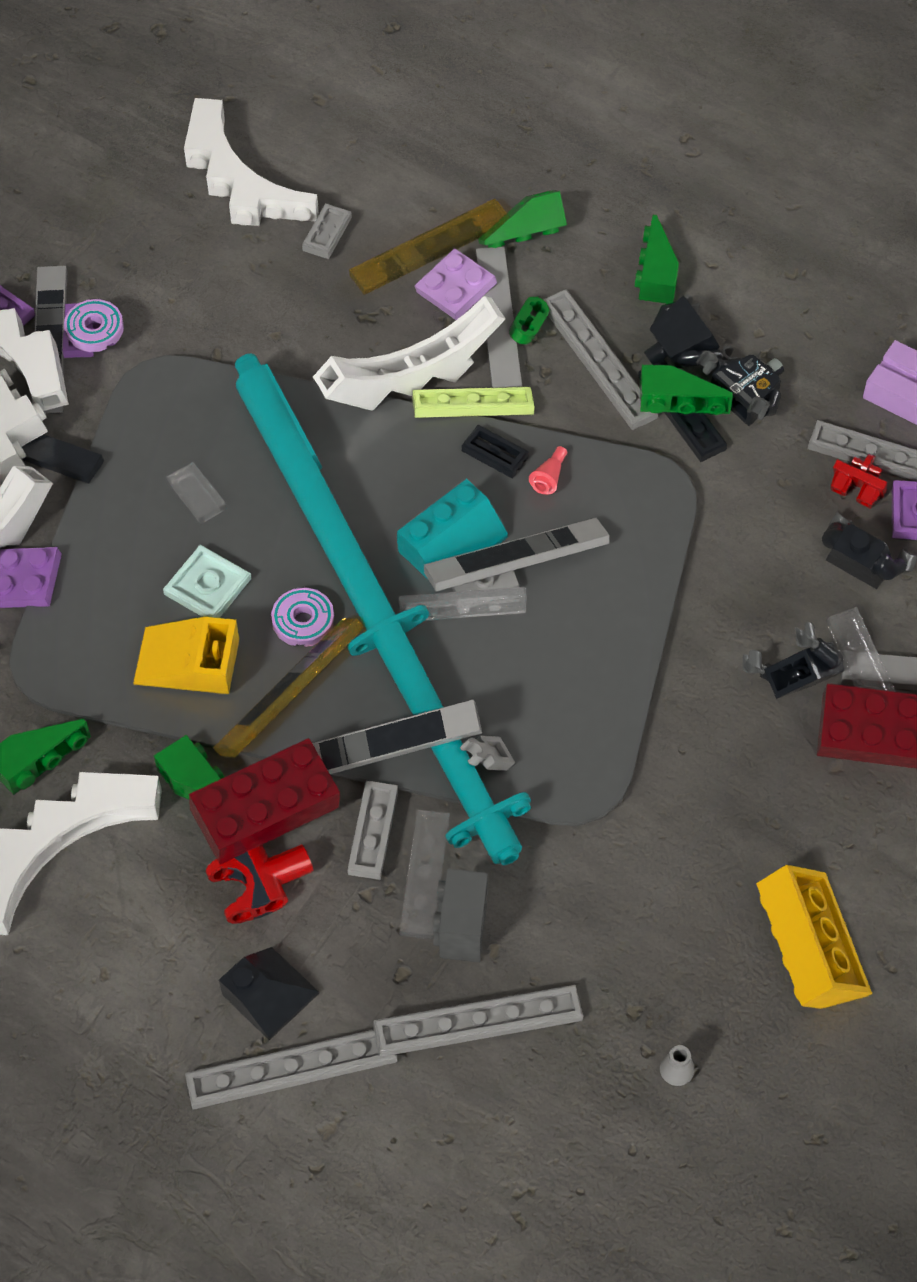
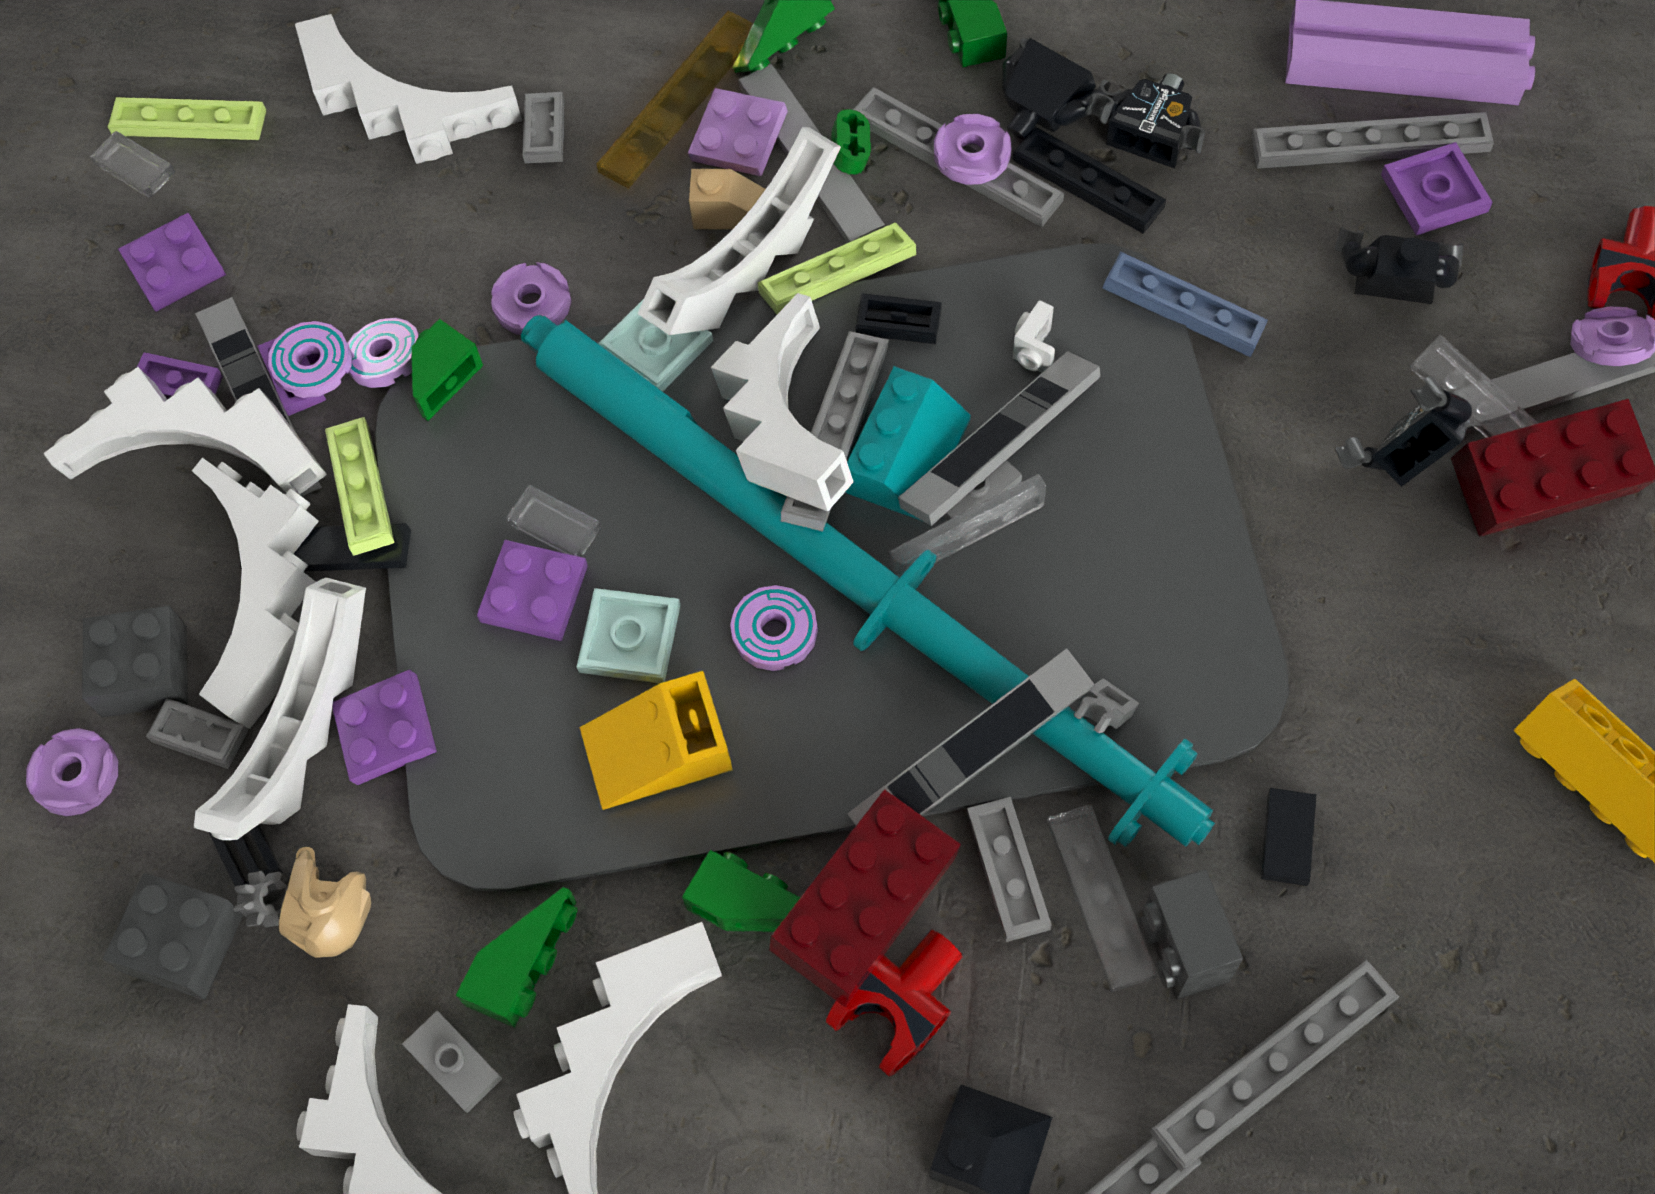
camera: 20 degrees left, 5 degrees up
(39, 227) = (171, 262): none -> medium lavender plate
(46, 152) = (132, 164): none -> clear tile
(84, 419) = (359, 486): none -> yellowish green tile
(96, 135) = (187, 118): none -> yellowish green tile
(154, 329) = (371, 341): none -> lavender tile
(161, 530) = (532, 590): none -> medium lavender plate
(174, 363) = (441, 366): none -> green slope
(261, 328) = (522, 280): none -> lavender tile
(288, 687) = (807, 731): clear yellow tile -> none
(318, 413) = (652, 351): none -> light aqua tile
(361, 473) = (774, 445): none -> white arch
(406, 504) = (842, 412): none -> light grey tile
(416, 322) = (720, 198): none -> tan slope
(546, 476) = (980, 325): coral cone -> none
(569, 889) = (1288, 836): none -> black tile
(575, 497) = (1029, 338): none -> white bracket
(609, 371) = (972, 167): none -> lavender tile
(674, 390) = (1078, 157): green slope -> none
(677, 1066) = (1551, 1010): light grey cone -> none
(698, 519) = (1185, 304): none -> sand blue tile
(870, 486) = (1345, 174): red hips -> none

